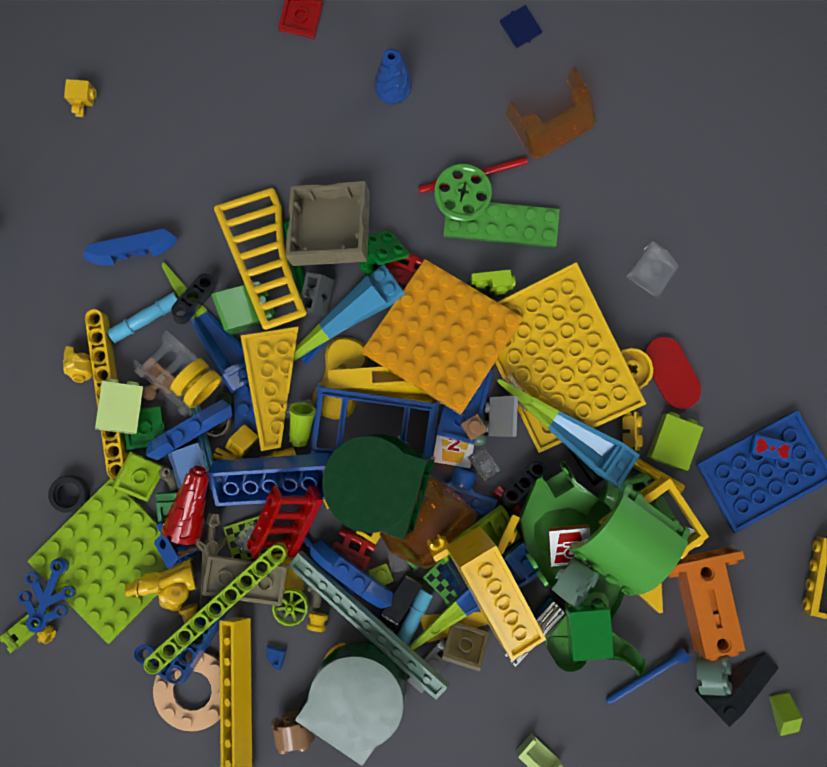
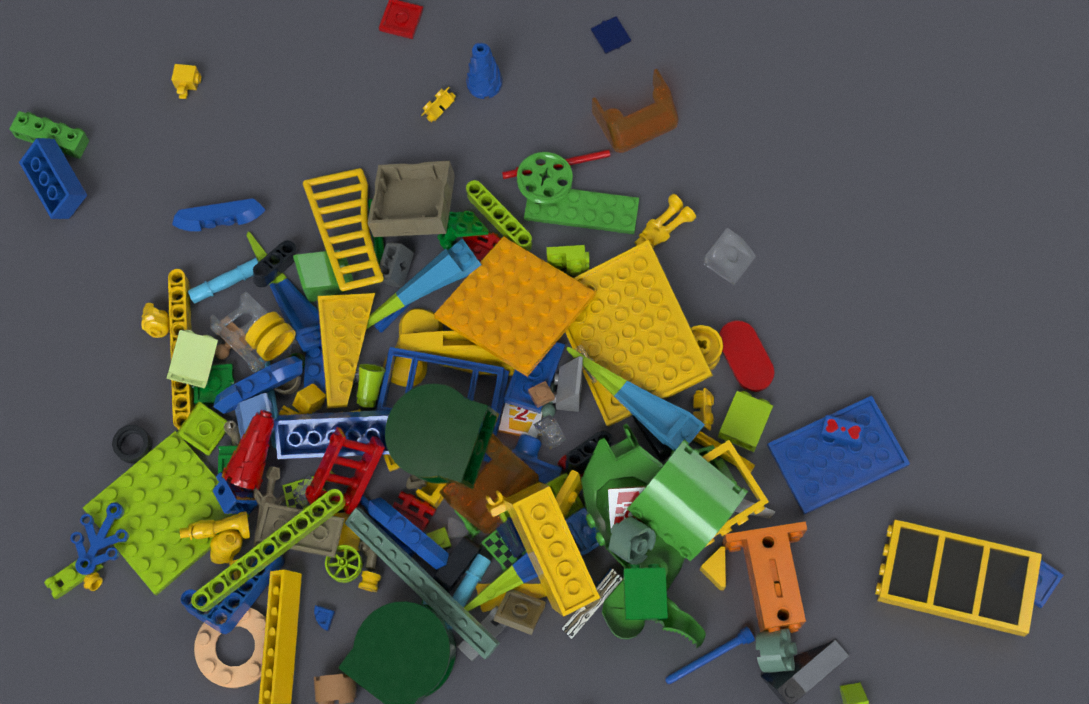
camera: 10 degrees right, 15 degrees down
(351, 107) = (433, 110): none -> yellow hinge
(415, 227) = (495, 209): none -> lime beam
(578, 246) = (654, 229): none -> yellow piece

